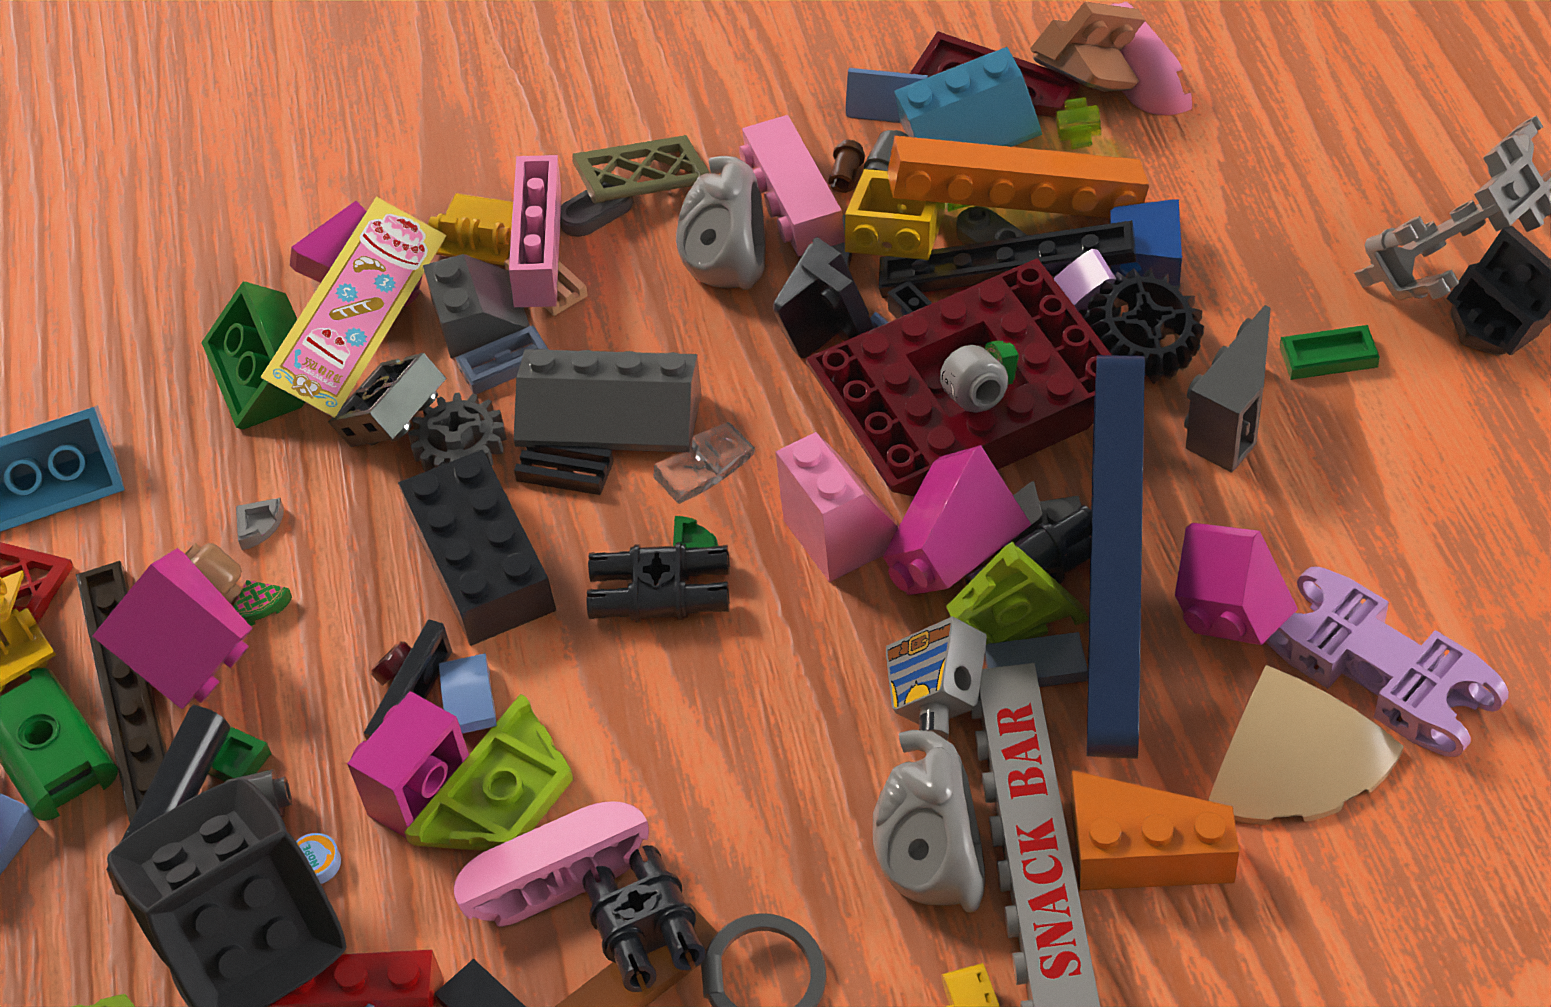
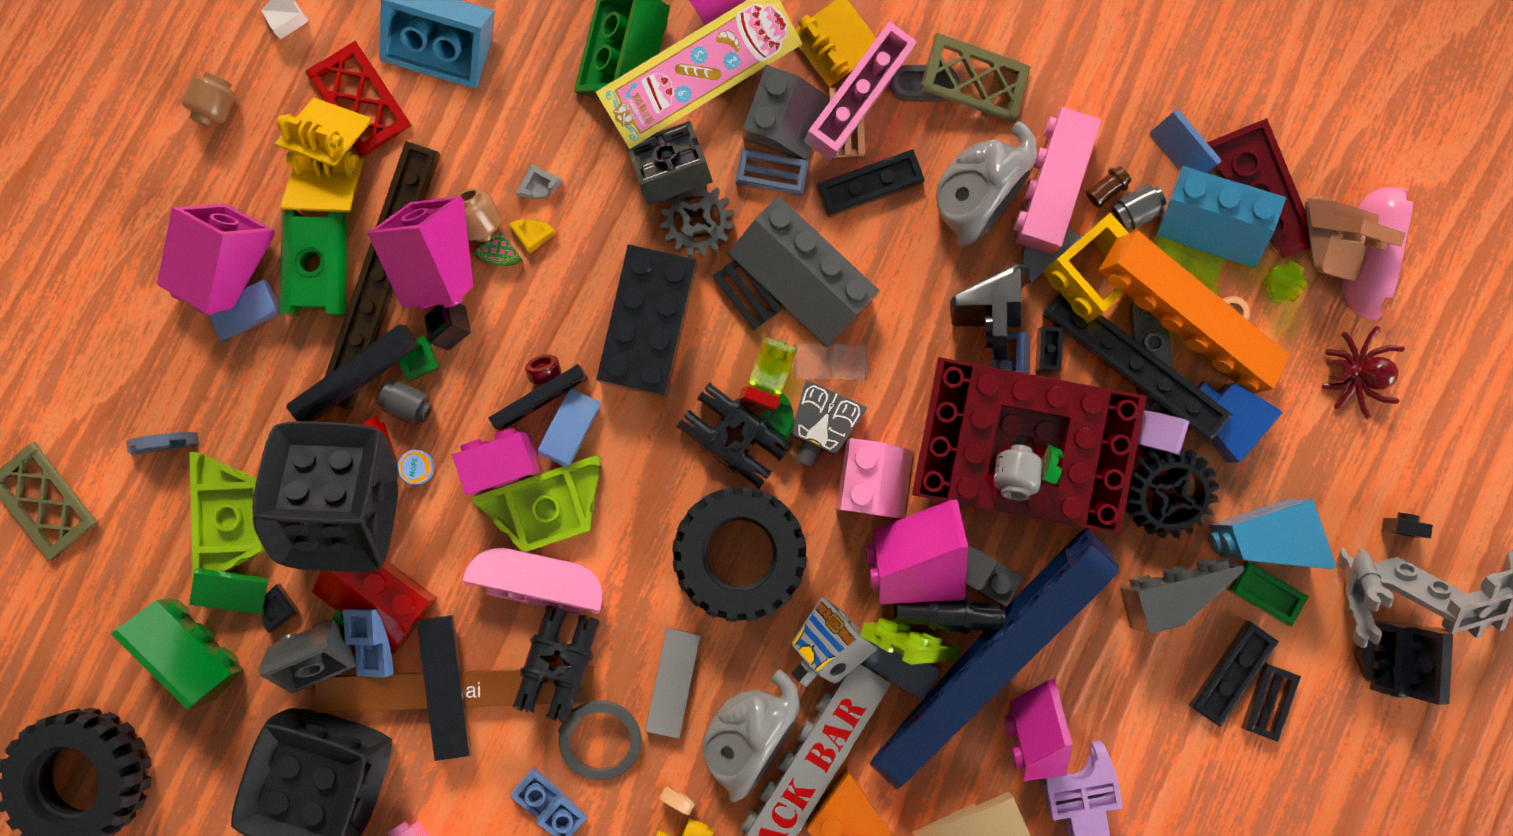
camera: 30 degrees right, 35 degrees up
(248, 700) = (447, 325): none -> black slope
(283, 566) = (532, 232): none -> yellow tile
(613, 305) = (870, 183): none -> black tile
(645, 495) = (772, 366): none -> clear neon green bracket
(655, 528) = (755, 396): none -> red tile
(741, 505) = (823, 422): none -> dark grey torso
(770, 715) = (732, 601): none -> black tyre
(798, 857) = (673, 682): none -> light grey tile
(910, 963) = (677, 800): none -> light nougat tile
(1222, 139) = (1364, 372): none -> dark red animal
(1291, 274) = (1276, 533): none -> dark azure slope
(1371, 435) = (1233, 673): none -> black tile
(1391, 211) = (1407, 525): none -> black plate
(1421, 441) = (1258, 697): none -> black tile

